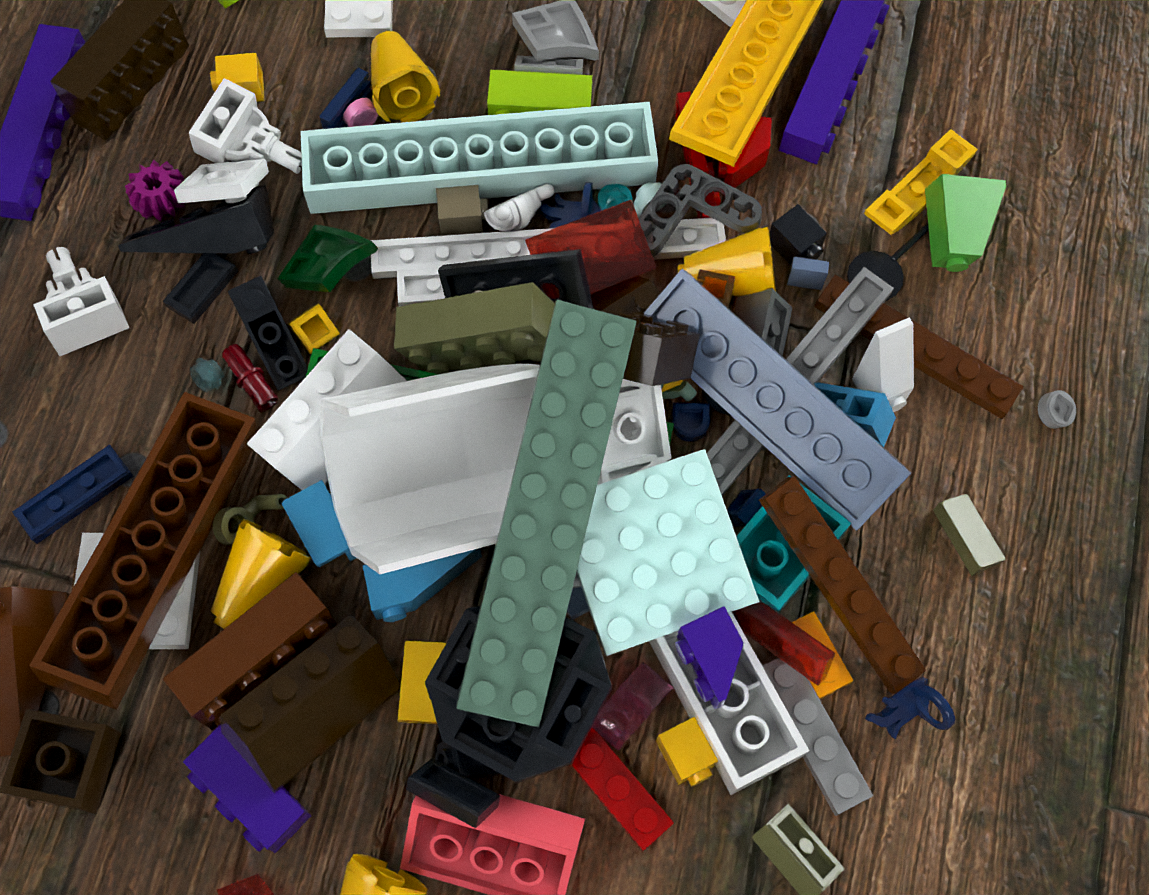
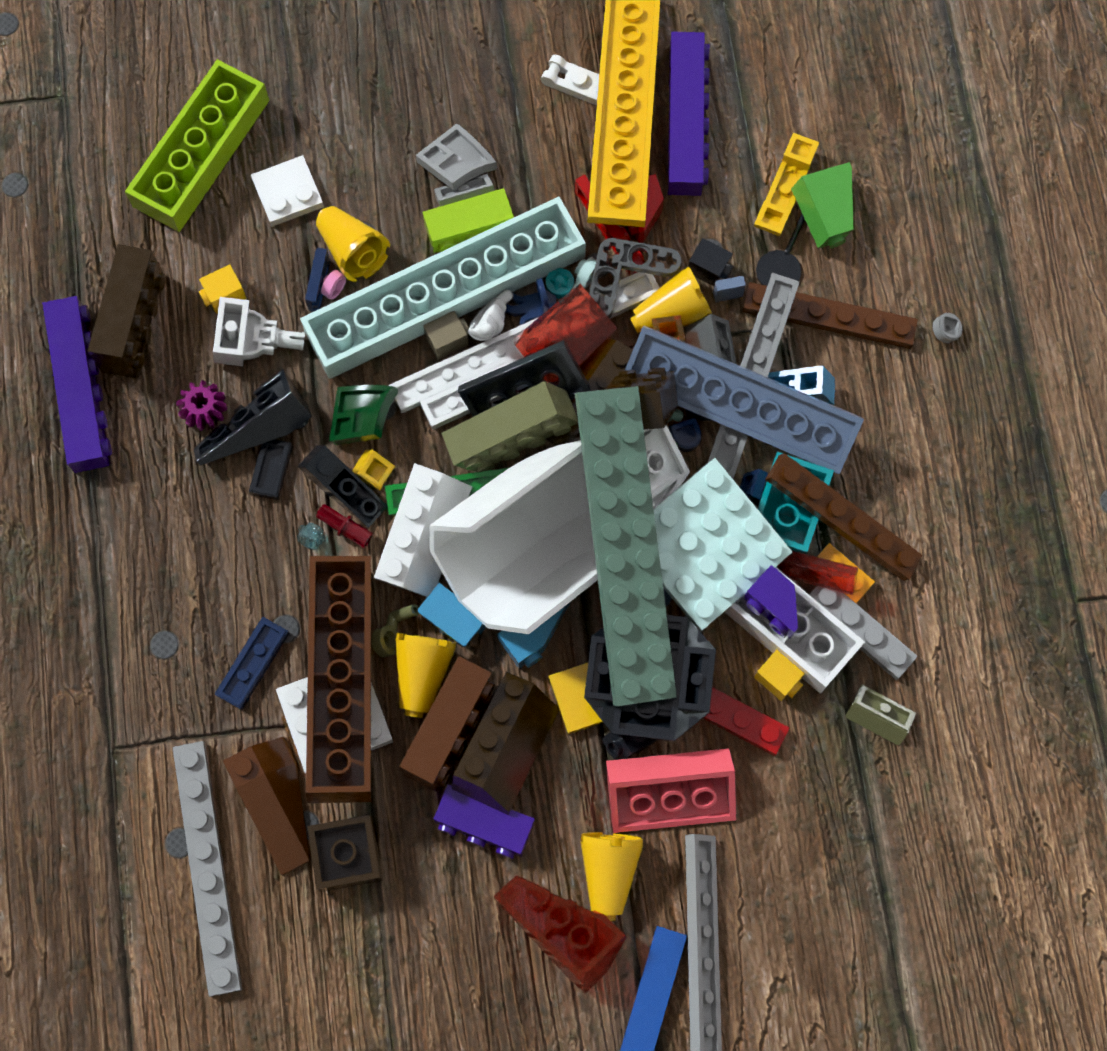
camera: 20 degrees left, 5 degrees up
(79, 309) = (188, 522): white brick -> none
(222, 181) = (254, 380): white plate -> none
(453, 792) = (633, 765): black tile -> none
(631, 705) = (729, 657): clear pink slope -> none
(889, 364) = (817, 343): white slope -> none
(909, 703) = (919, 582): dark blue piece -> none
(968, 534) = (917, 444): slope -> none

